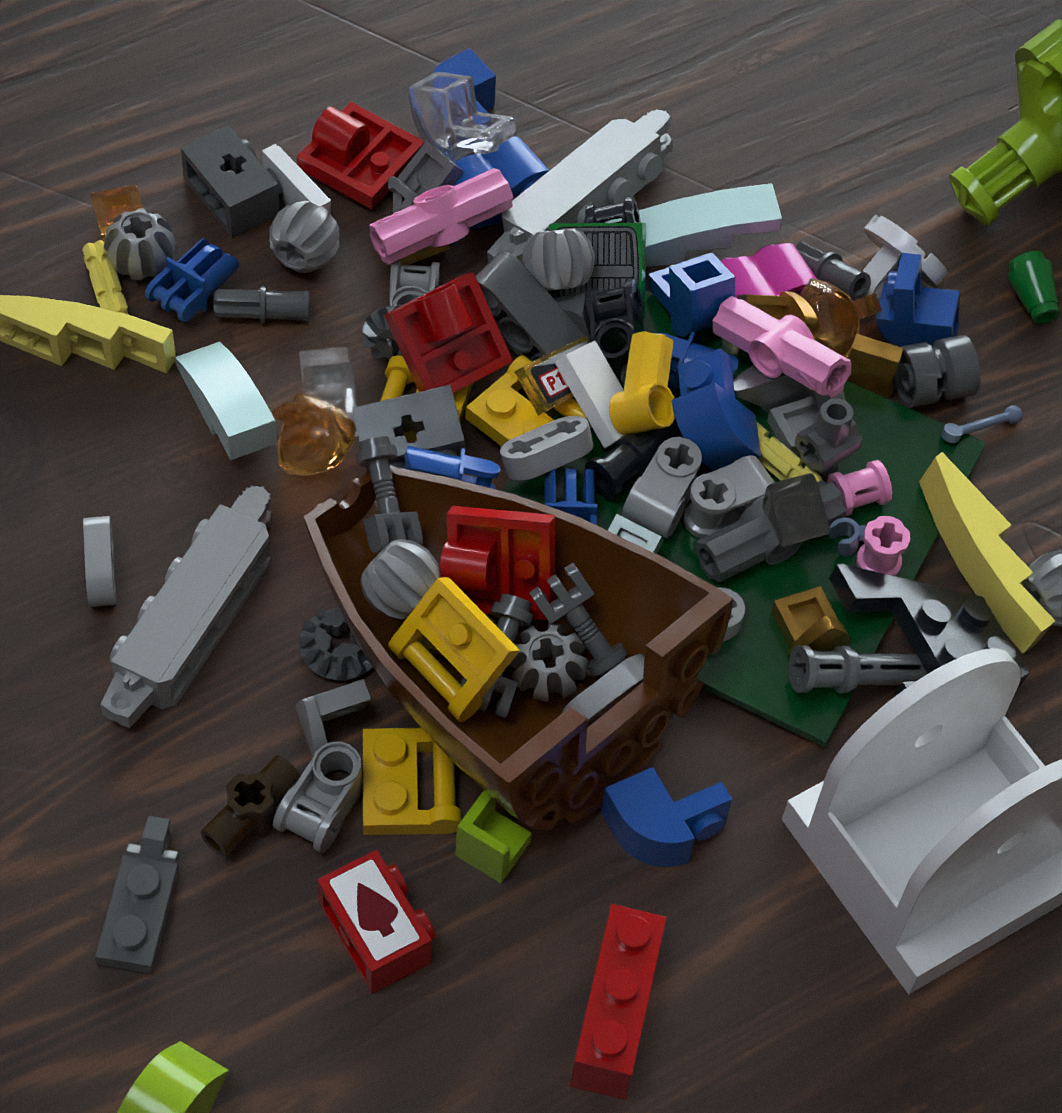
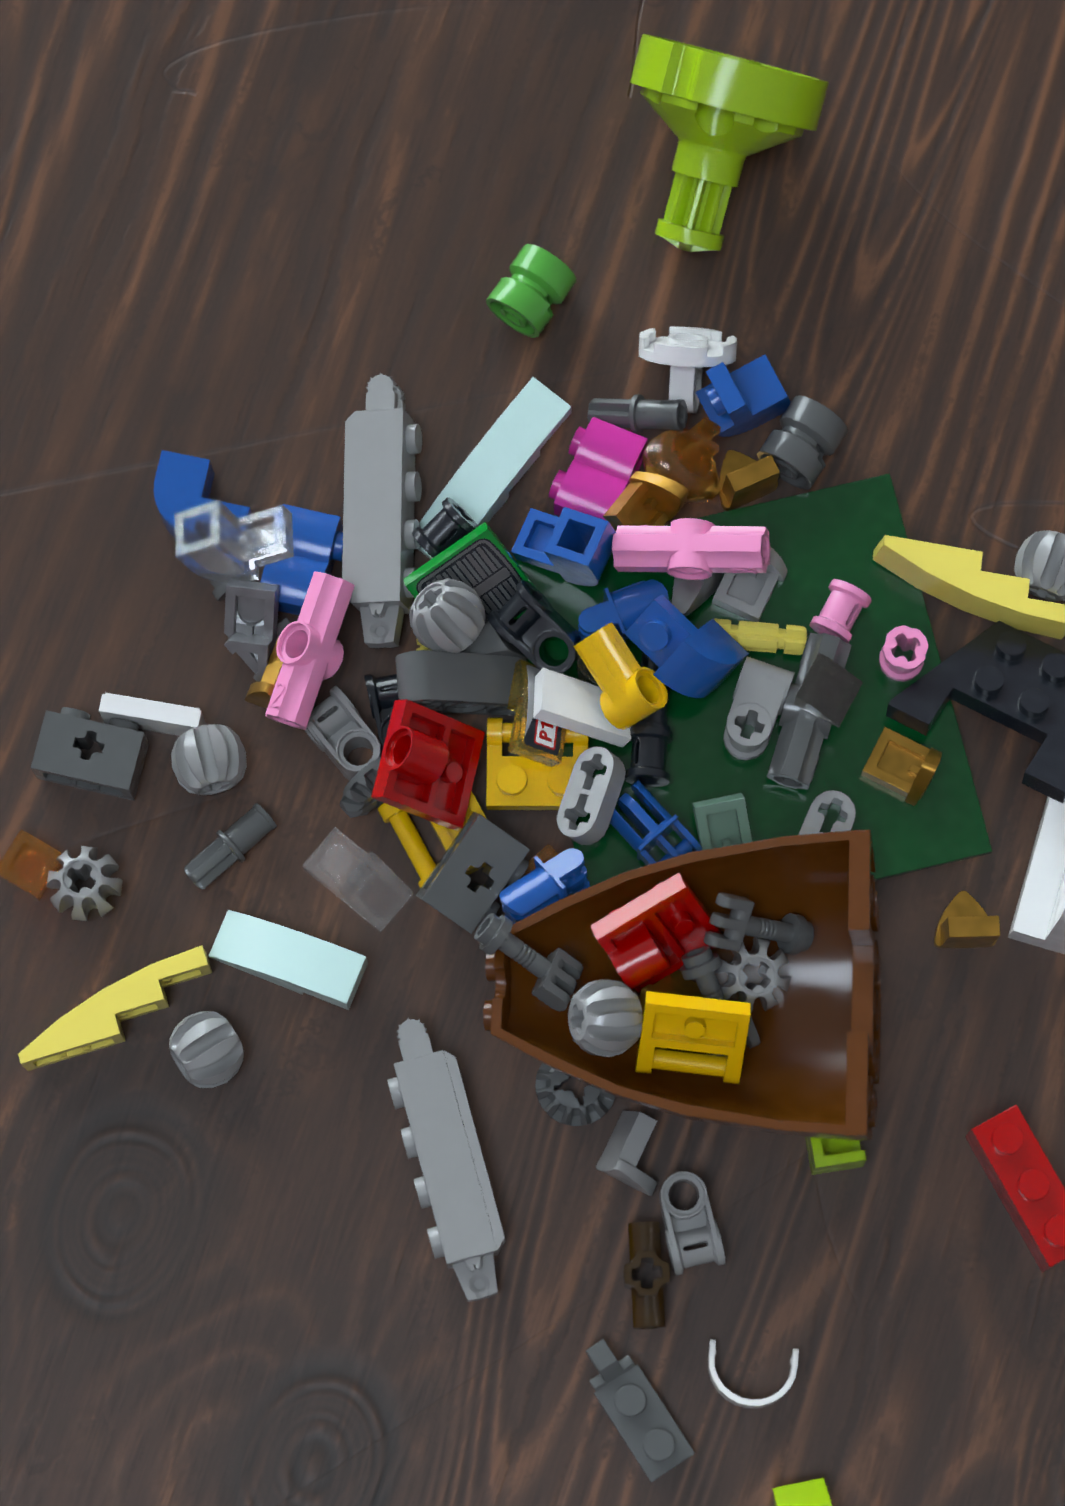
camera: 35 degrees left, 20 degrees up
(99, 561) = (341, 1185): light grey beam -> none
(104, 278) = (85, 938): light yellow axle -> none
(104, 400) = (206, 1049): none -> light grey piece
(192, 279) = (156, 881): blue arm -> none
(243, 976) = (743, 1402): none -> white helmet
(312, 435) = (396, 936): clear orange piece -> none
(357, 153) = (164, 631): red plate -> none
(376, 920) = (814, 1279): brick -> none
(391, 784) = (724, 1166): yellow plate -> none
(609, 689) = (821, 961): light grey beam -> none
(656, 827) = (933, 1032): blue brick -> none
(664, 488) = (706, 754): light grey piece -> none
(752, 776) = (966, 925): none -> pearl gold tile
(830, 438) = (793, 599): dark grey axle -> none
(832, 148) = (535, 284): none -> bright green wheel
(846, 669) = (962, 782): dark grey pin -> none
(849, 528) = (871, 644): sand blue hand -> none
(953, 432) = (861, 489): sand blue hinge -> none
(1035, 285) = (805, 281): green cone -> none

